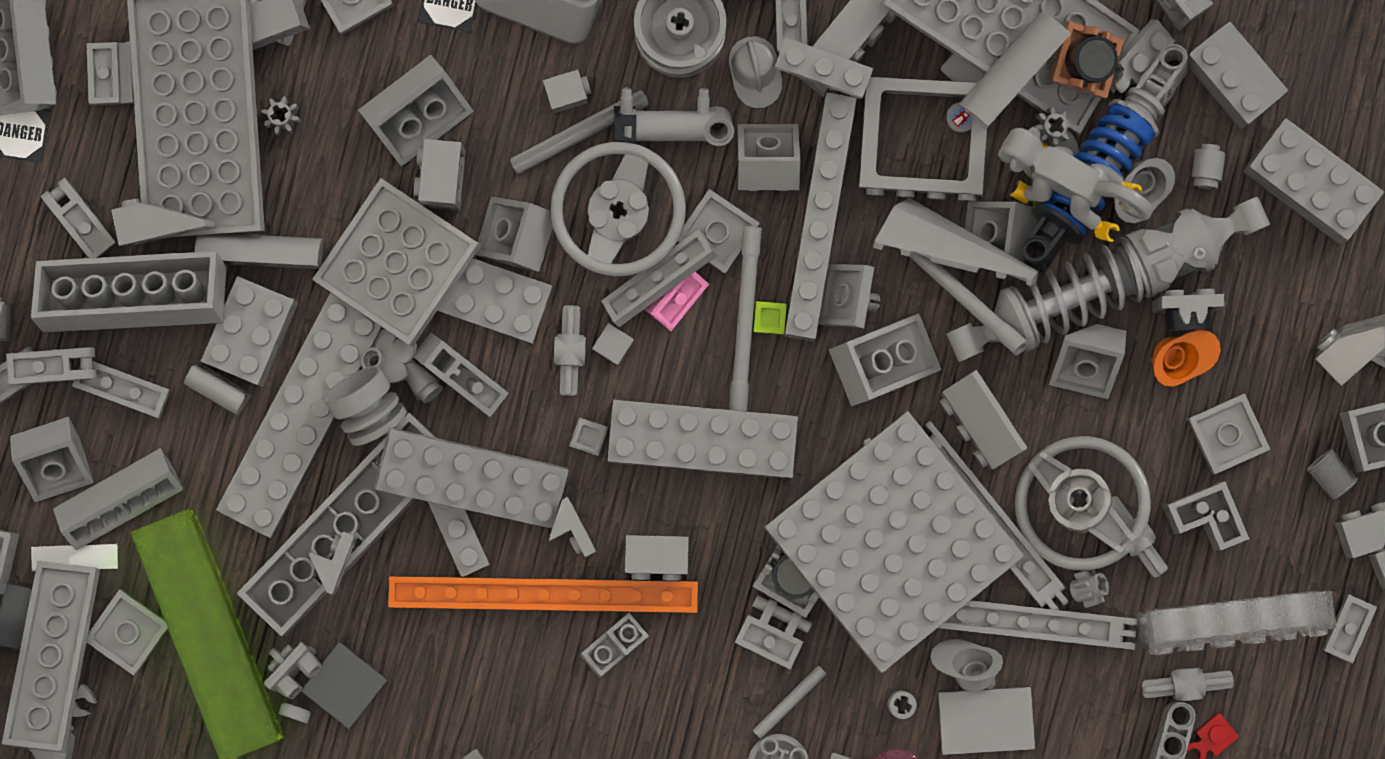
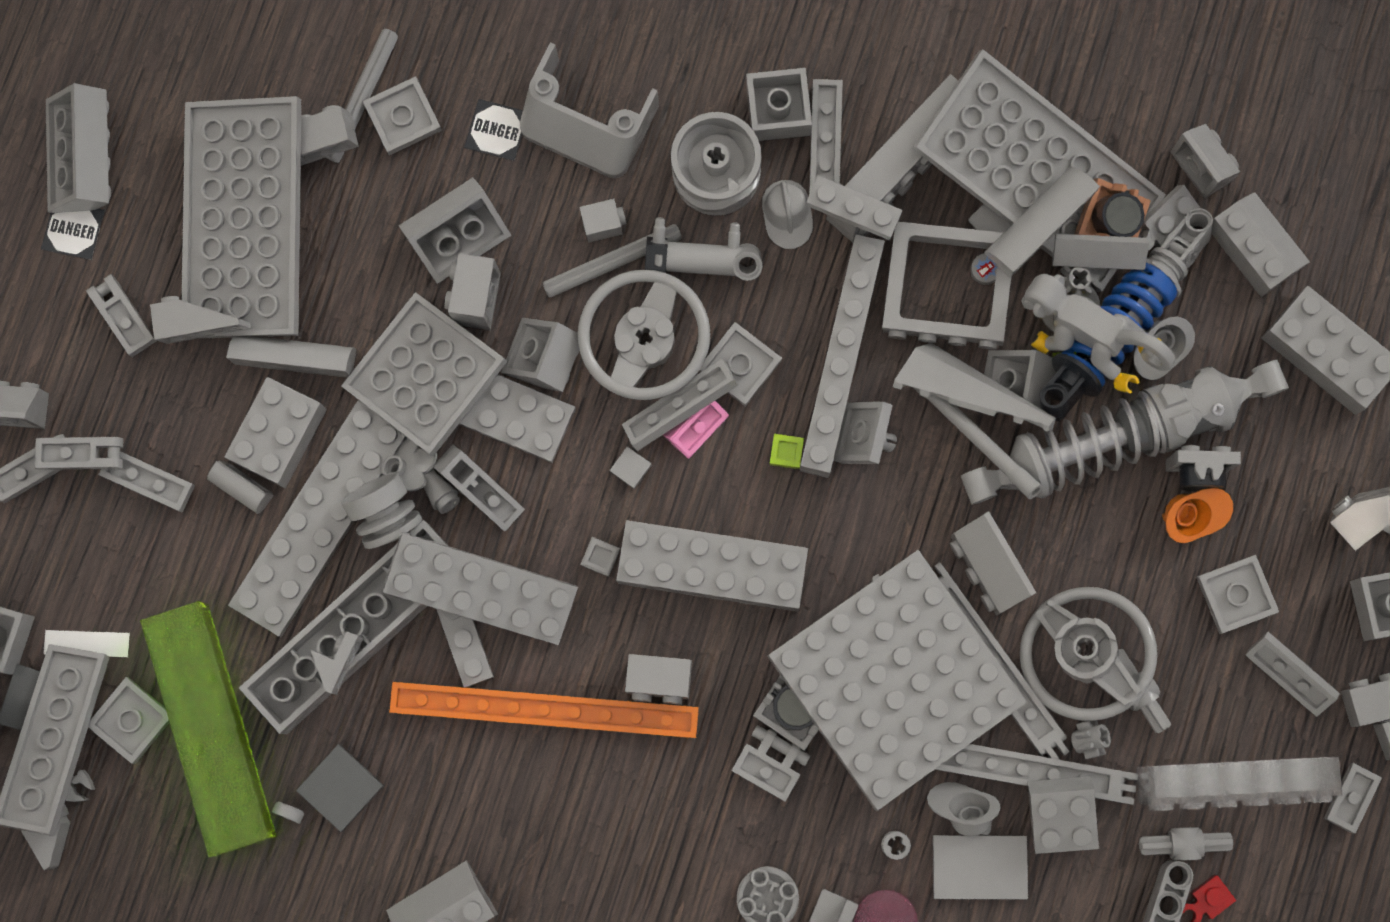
camera: 15 degrees right, 5 degrees down
(50, 459) = (71, 545): light grey slope -> none
(109, 73) = (162, 178): light grey plate -> none
(117, 499) = (132, 588): light grey brick -> none
(129, 291) = (160, 385): light grey brick -> none
(288, 665) = (285, 764): light grey hips -> none
(289, 115) = (320, 219): light grey gear -> none
(567, 521) = (574, 638): light grey slope -> none
(569, 350) = (587, 470): light grey axle -> none
(614, 645) = (610, 765): light grey slope -> none
(750, 252) = (771, 386): light grey piece -> none
(768, 157) = (795, 295): light grey slope -> none
(789, 702) = (782, 834): light grey bar -> none
(885, 360) = (897, 499): light grey slope -> none
(1065, 664) = (1063, 815): none -> light grey brick
(1075, 98) = (1100, 251): none -> light grey tile
(1090, 360) = (1102, 512): light grey slope -> none
(1208, 167) = (1227, 330): light grey brick -> none
(1212, 509) = (1218, 667): light grey brick -> none
(1285, 510) = (1292, 674): none -> light grey plate
(1332, 474) = (1341, 641): light grey piece -> none

